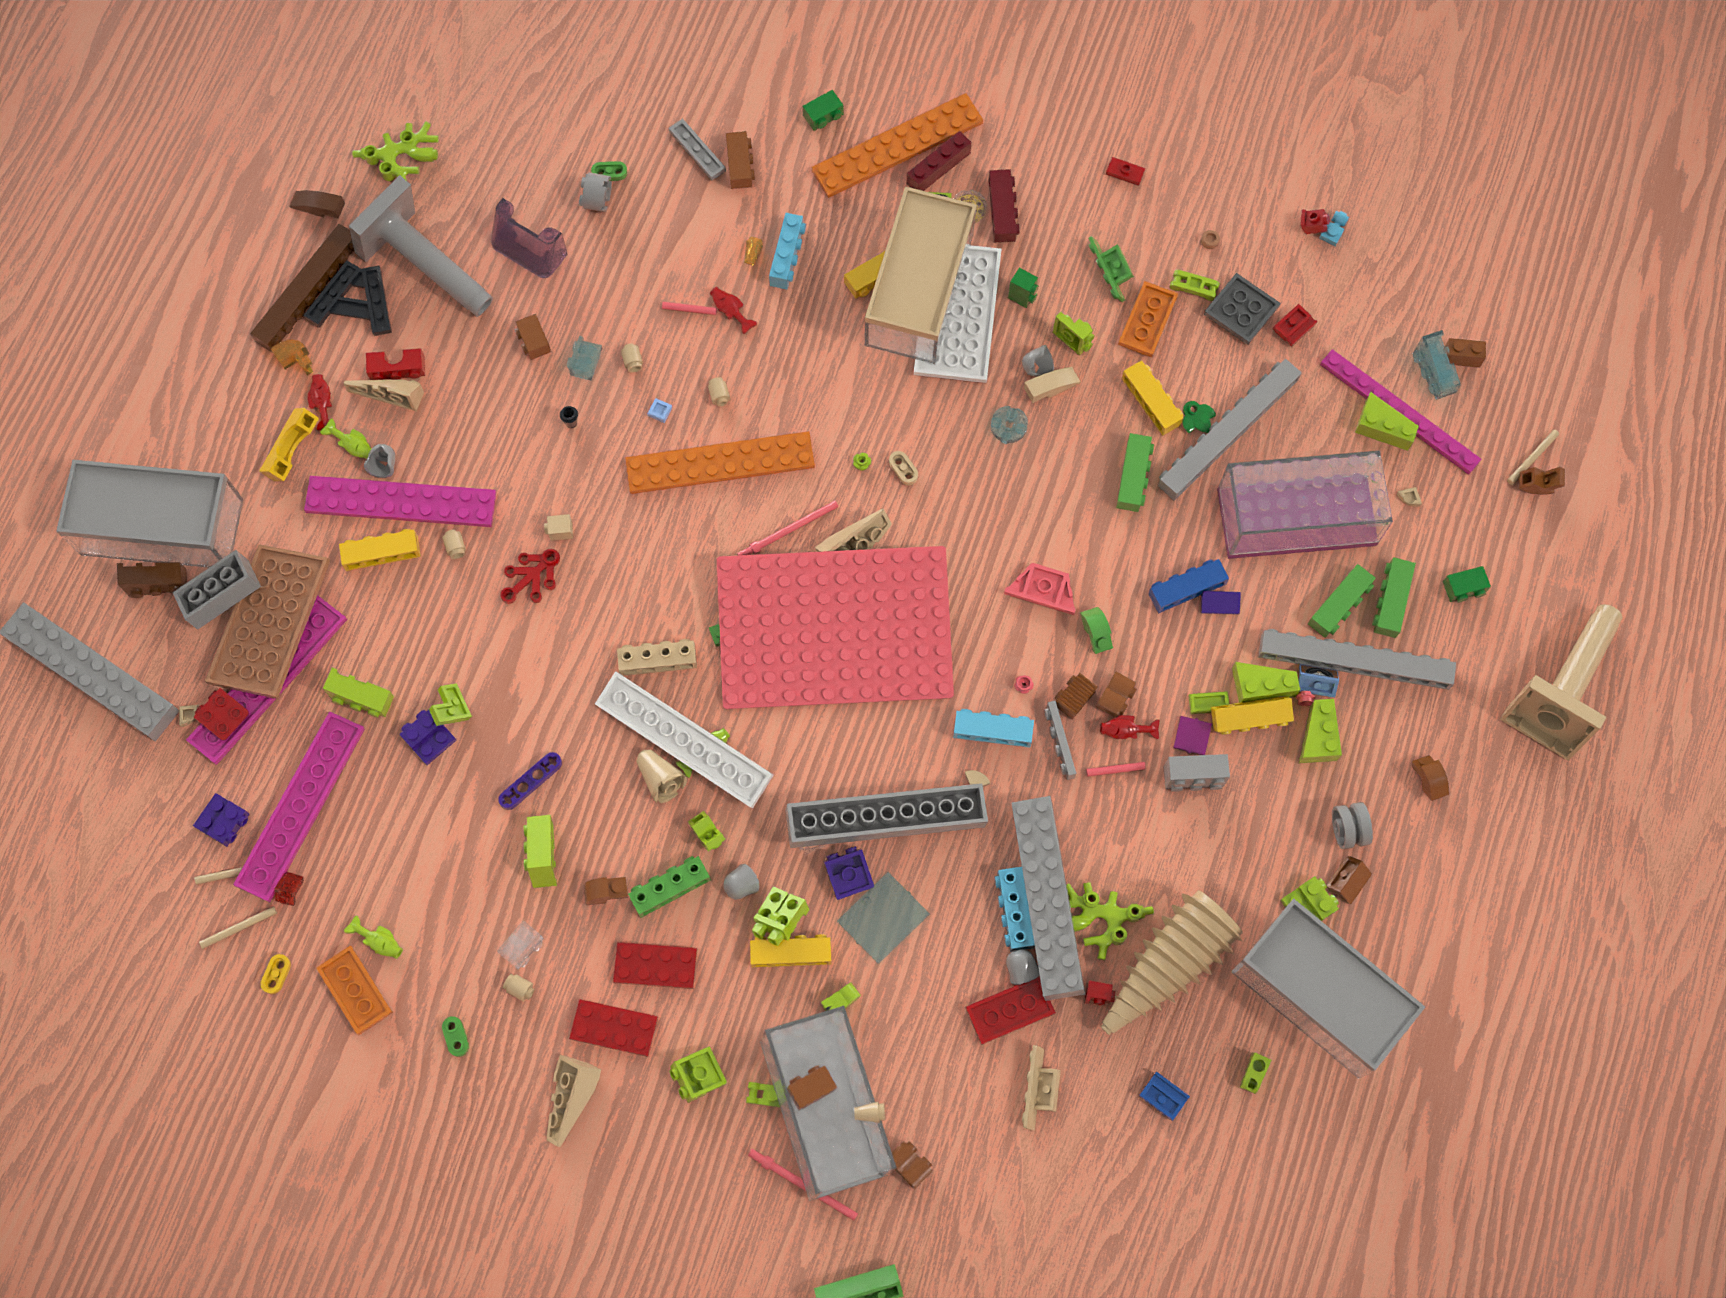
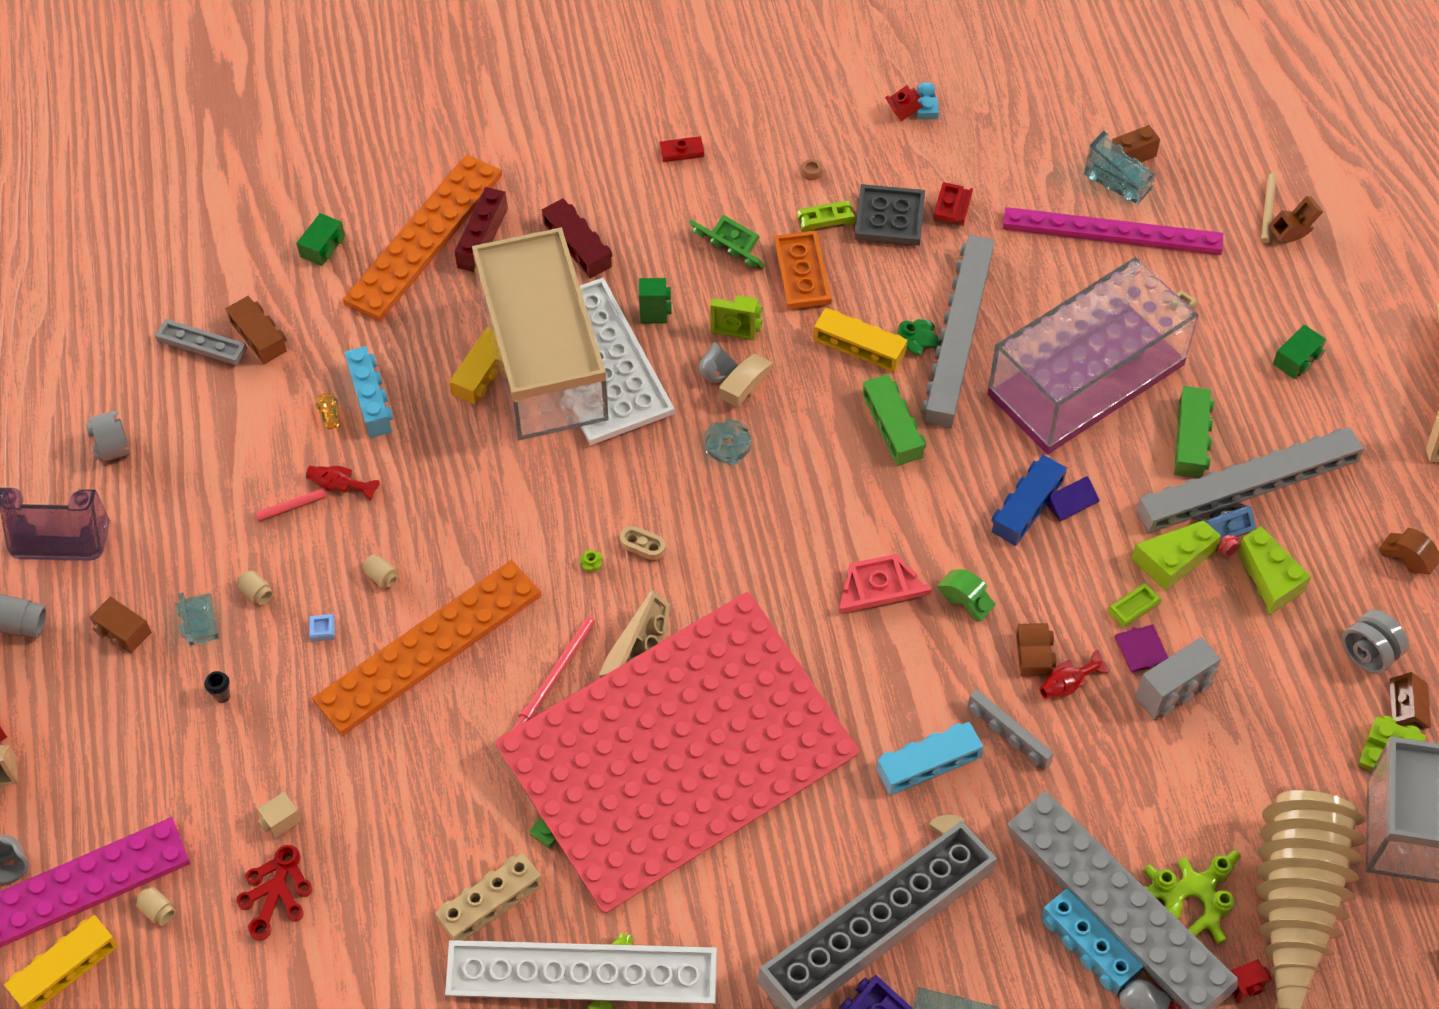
camera: 30 degrees left, 15 degrees down
(610, 169) = (114, 403): bright green plate -> none
(1024, 679) = (929, 688): coral plate -> none
(1075, 695) = (993, 673): dark orange brick -> none
(1115, 769) = (1088, 728): coral bar -> none
(1252, 714) = (1189, 589): yellow brick -> none
(1386, 424) = (1108, 246): lime wedge -> none
(1394, 597) = (1240, 401): bright green brick -> none

